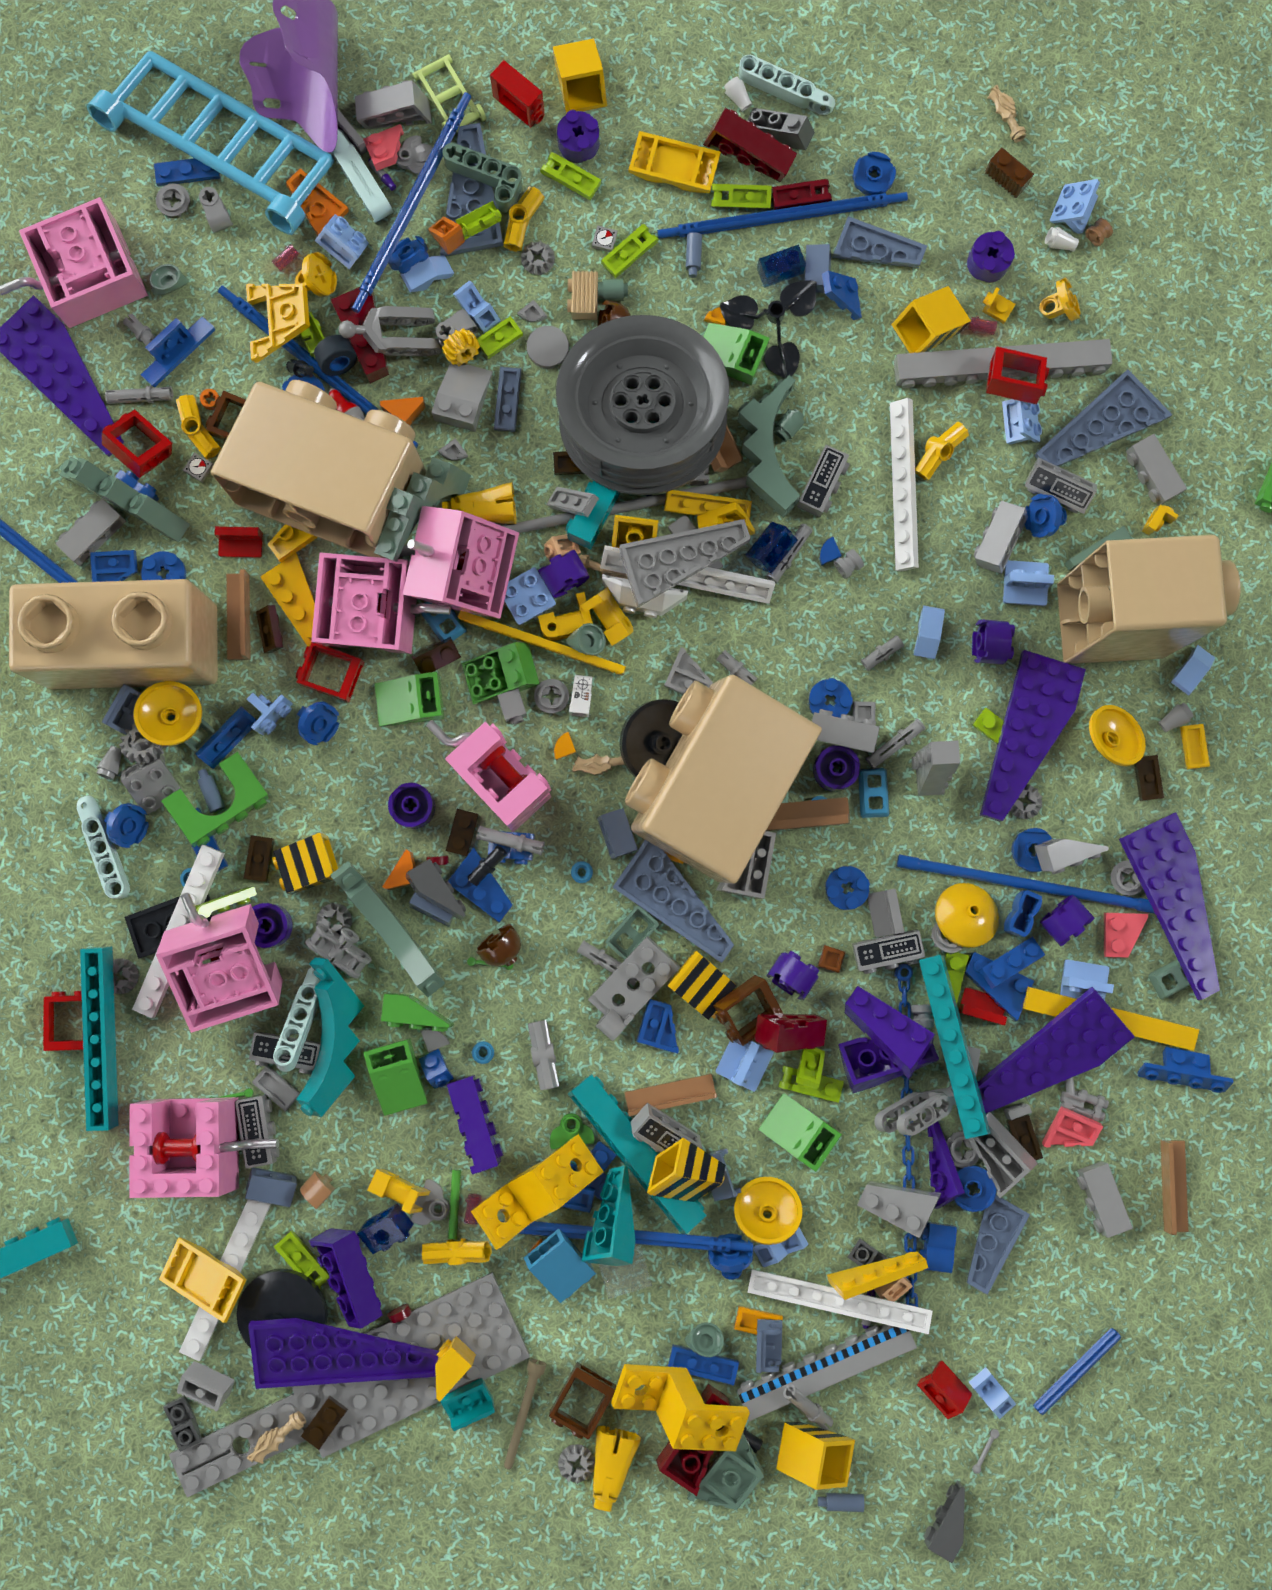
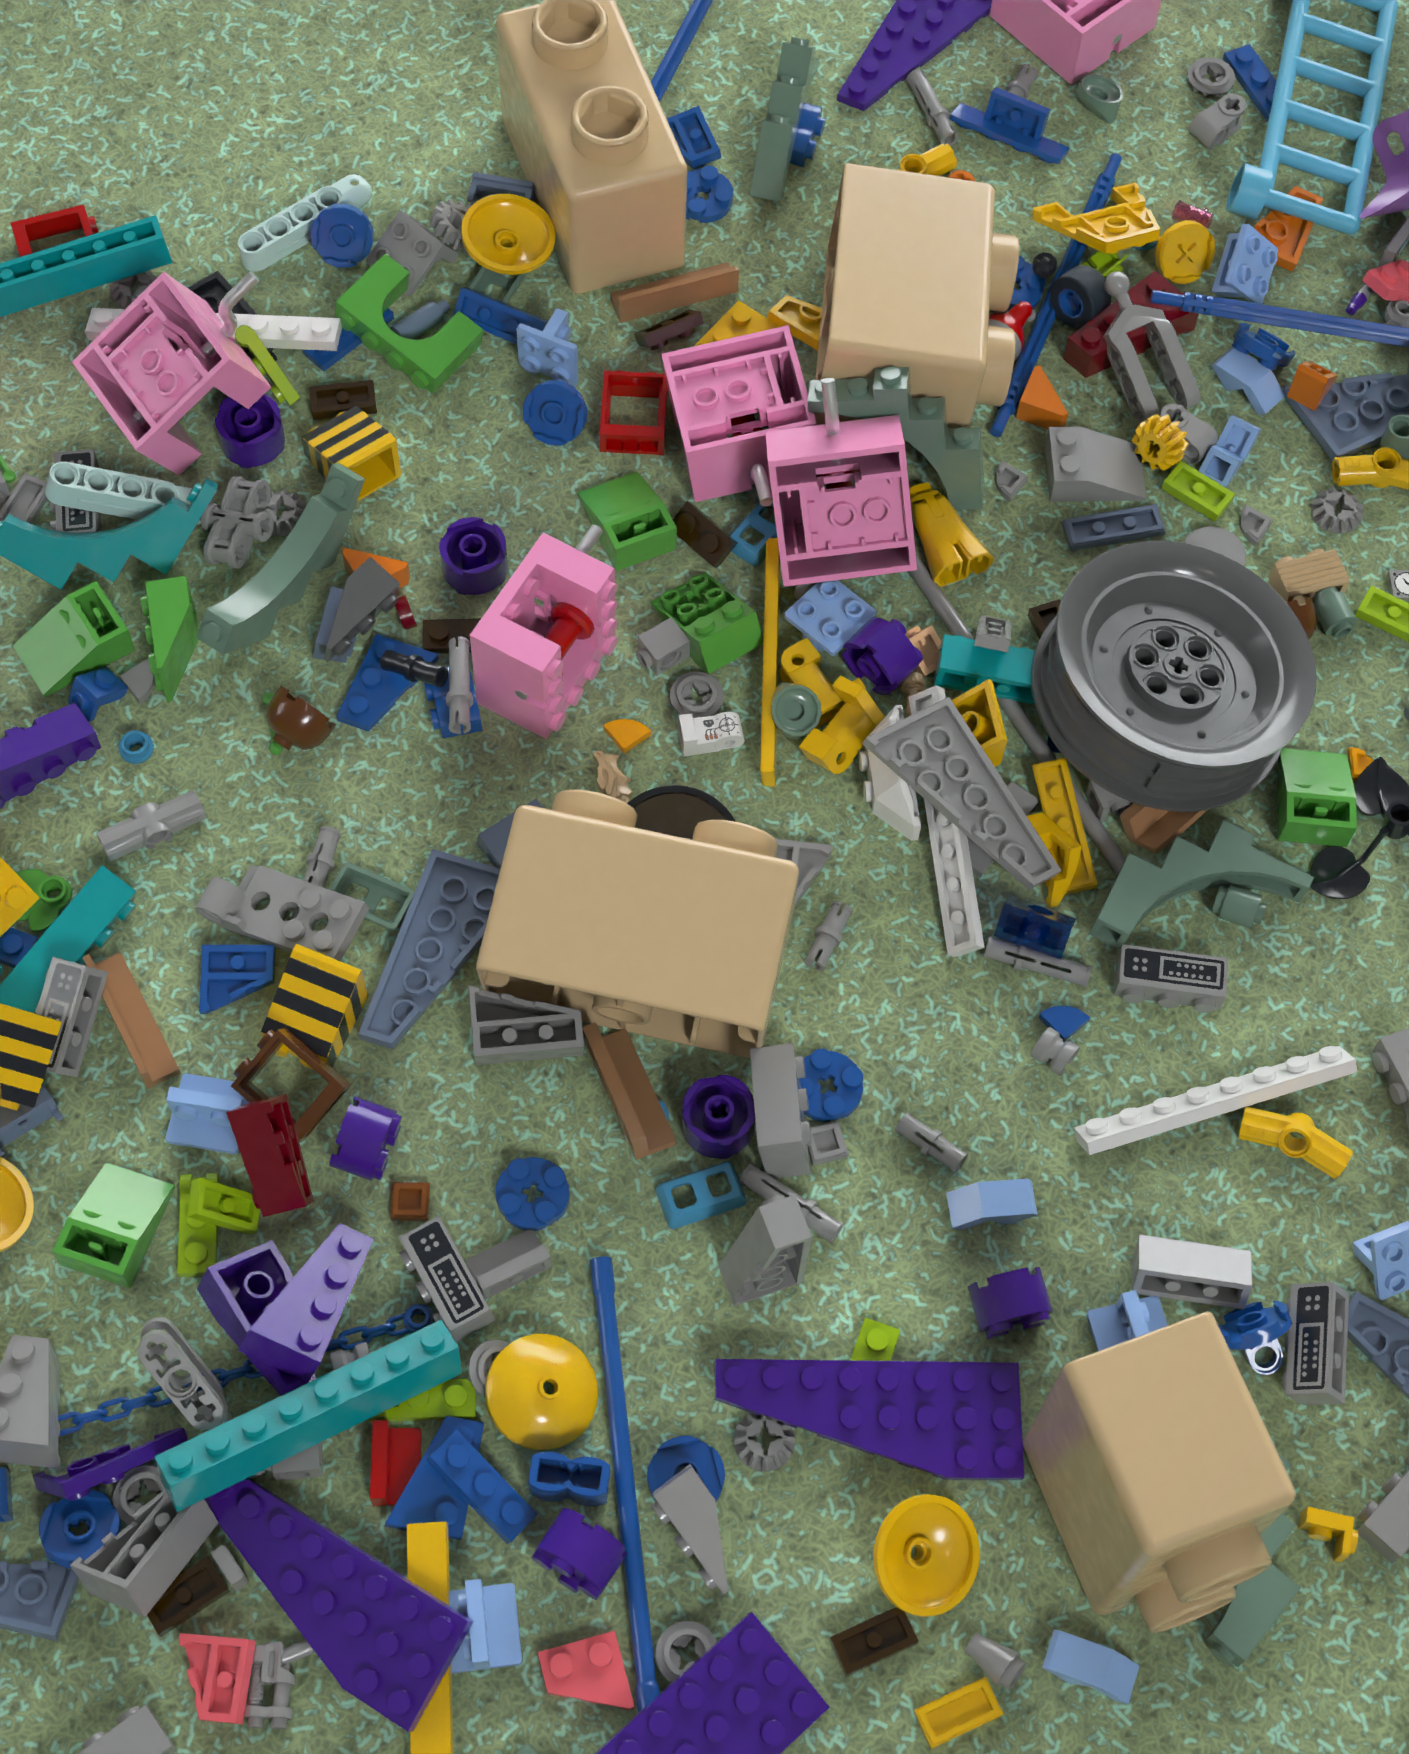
camera: 75 degrees right, 20 degrees down
(90, 531) = (724, 101): light grey brick -> none
(109, 765) = (420, 201): light grey cone -> none
(150, 458) = (840, 126): red window -> none
(239, 541) = (779, 265): red panel -> none
(361, 178) = (1346, 264): light aqua piece -> none
(479, 219) = (1351, 413): lime hinge -> none
(574, 872) = (444, 796): dark azure plate -> none

